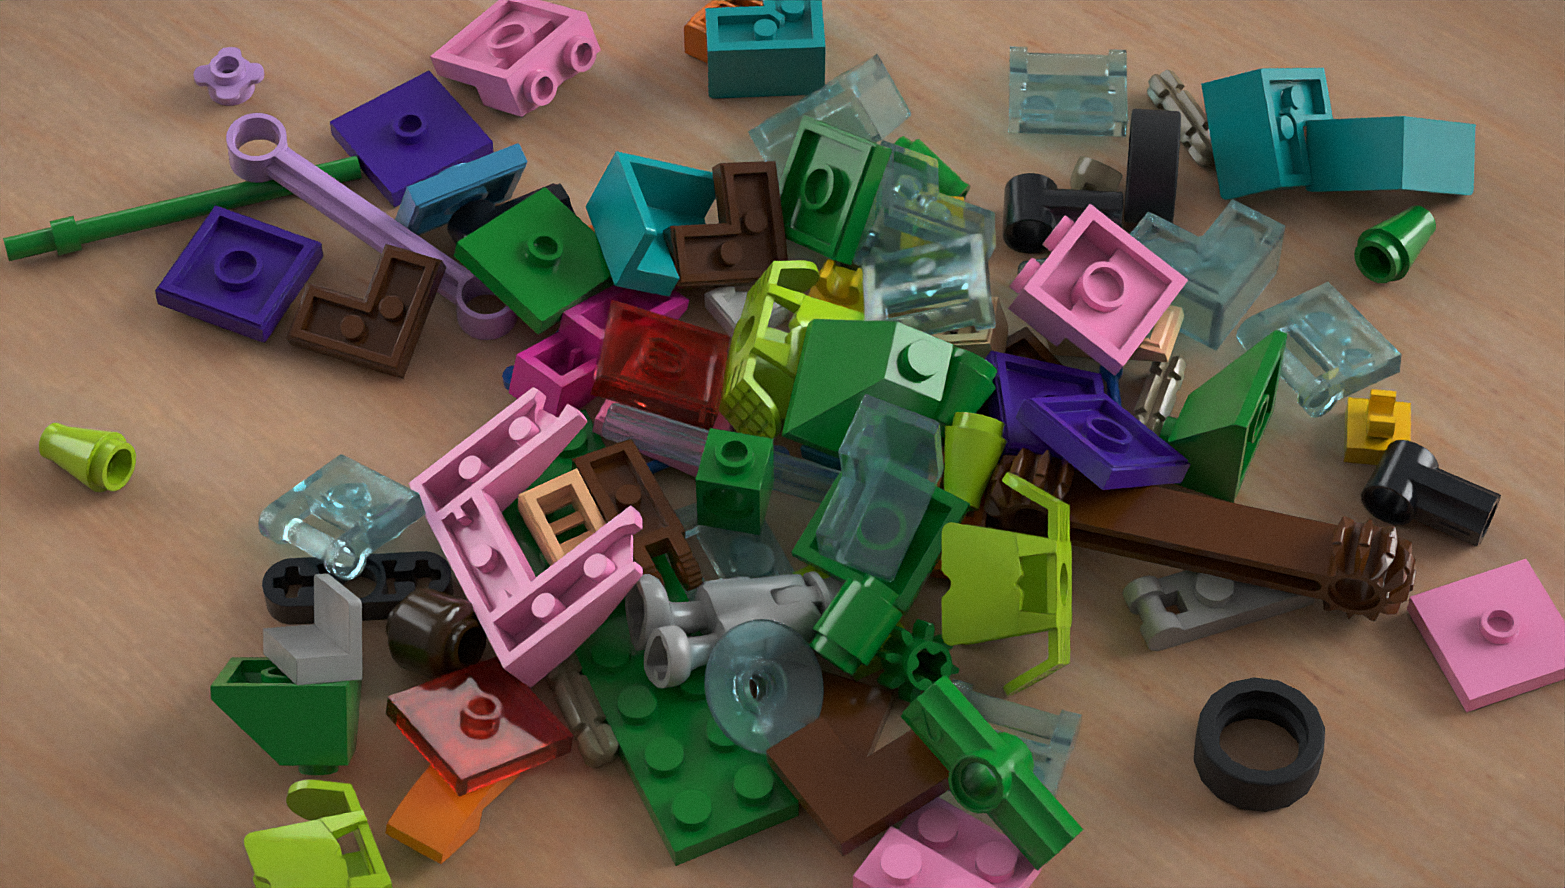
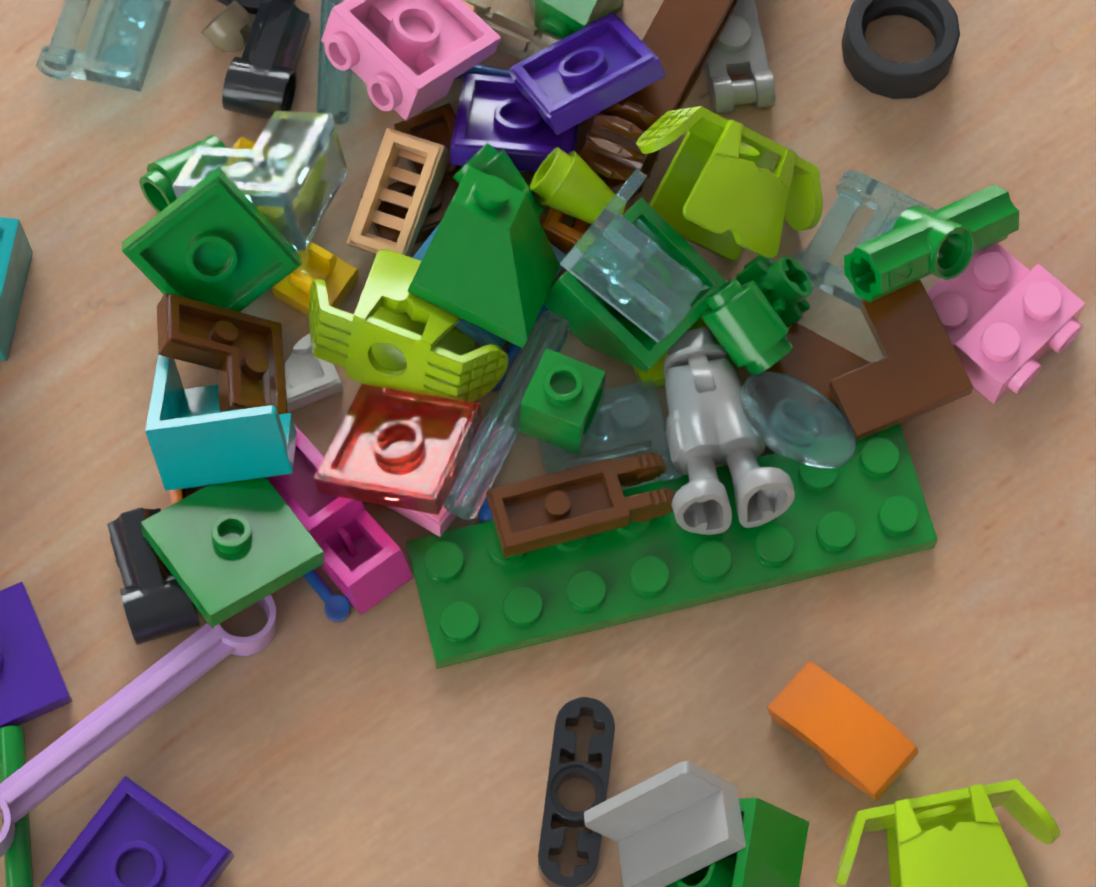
camera: 80 degrees left, 15 degrees up
(350, 498) = (486, 778): clear light blue plate -> none
(382, 326) = (251, 730): reddish brown tile -> none
(434, 633) = (660, 721): dark brown head -> none
(435, 199) = (111, 612): dark azure plate -> none
(478, 725) = (778, 693): clear red plate -> none
(526, 617) = (674, 631): bright pink wedge -> none
(551, 497) = (536, 582): light nougat slope -> none
(583, 713) = (758, 601): dark tan axle -> none
(857, 101) = (88, 223): clear light blue panel -> none
(929, 277) = (352, 183): clear light blue plate -> none

